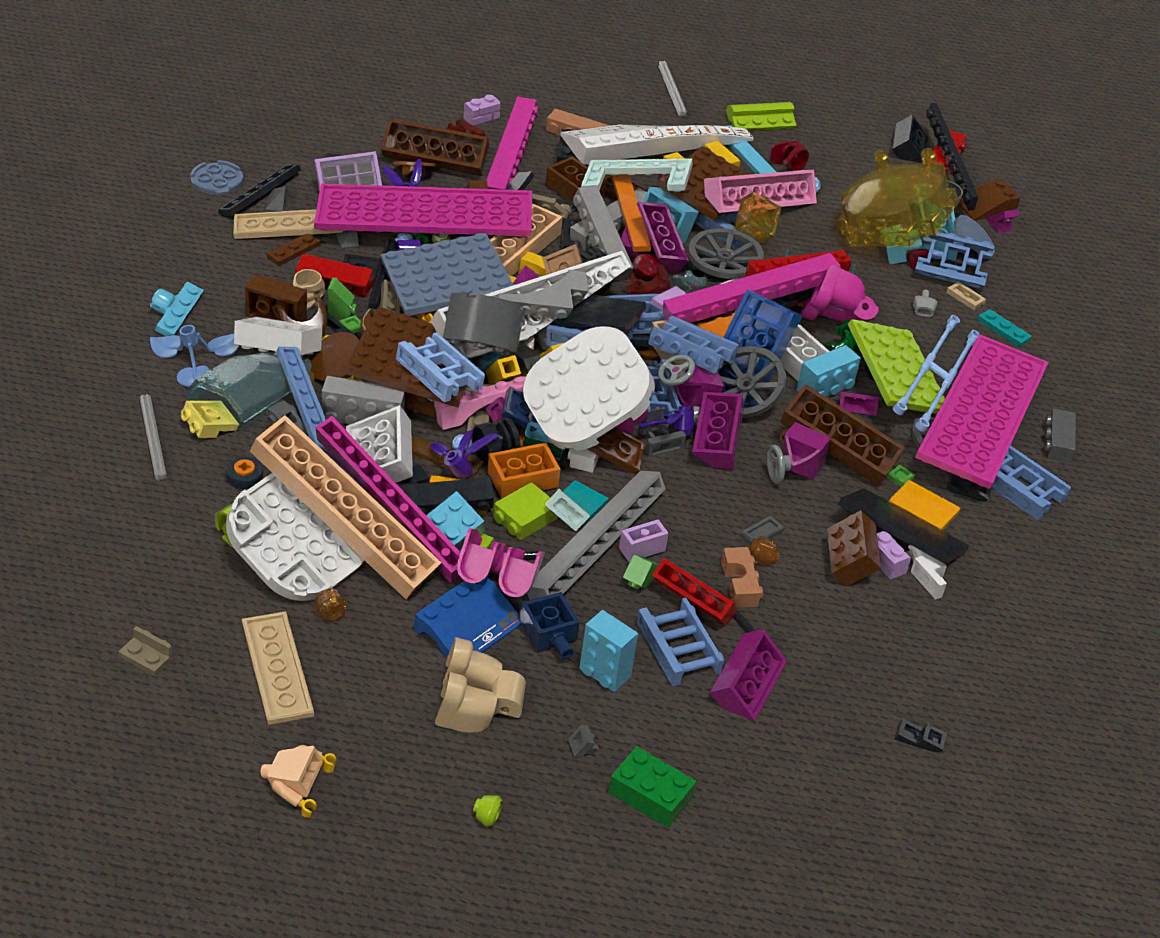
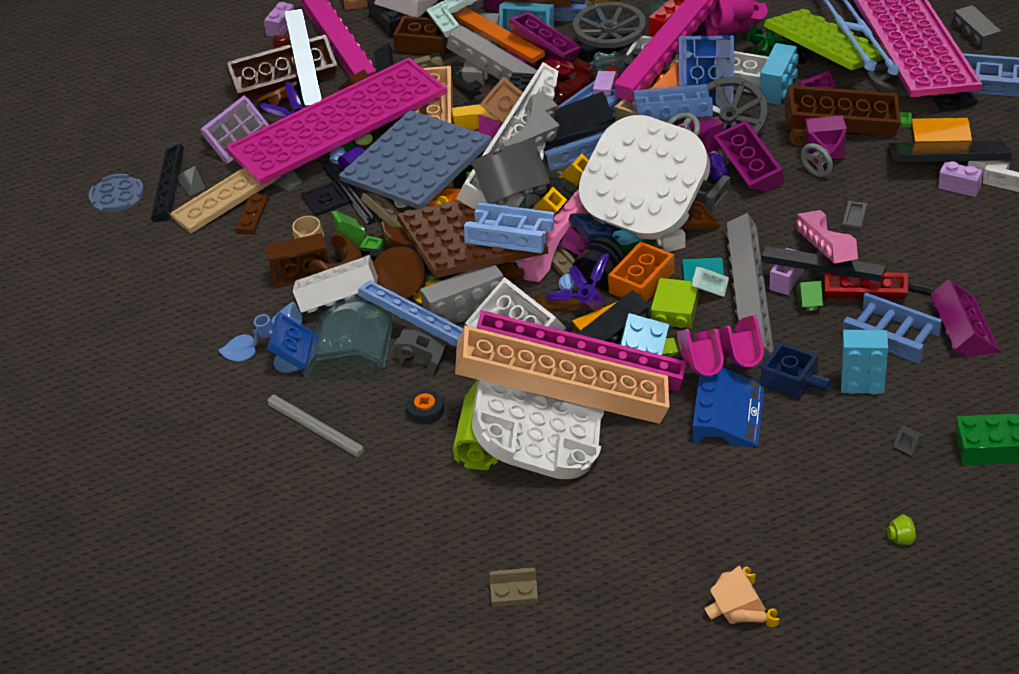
camera: 25 degrees left, 0 degrees up
(174, 307) = (211, 313): medium azure plate -> none
(197, 358) = (290, 340): none -> blue tile
(208, 418) = (346, 383): light yellow plate -> none
(277, 668) = (625, 534): tan tile -> none
(330, 604) = (613, 461): clear orange head -> none
(354, 278) = (319, 208): red brick -> none
(454, 144) = (302, 57): none -> tile
(477, 690) = (797, 447): tan piece -> none
(669, 550) = (823, 264): none -> black tile
(688, 538) = (833, 245): none -> bright pink arch
(745, 588) = (873, 248): nougat arch -> none
(764, 551) = (874, 228): clear orange head -> none
(853, 548) = (938, 187): reddish brown brick -> none

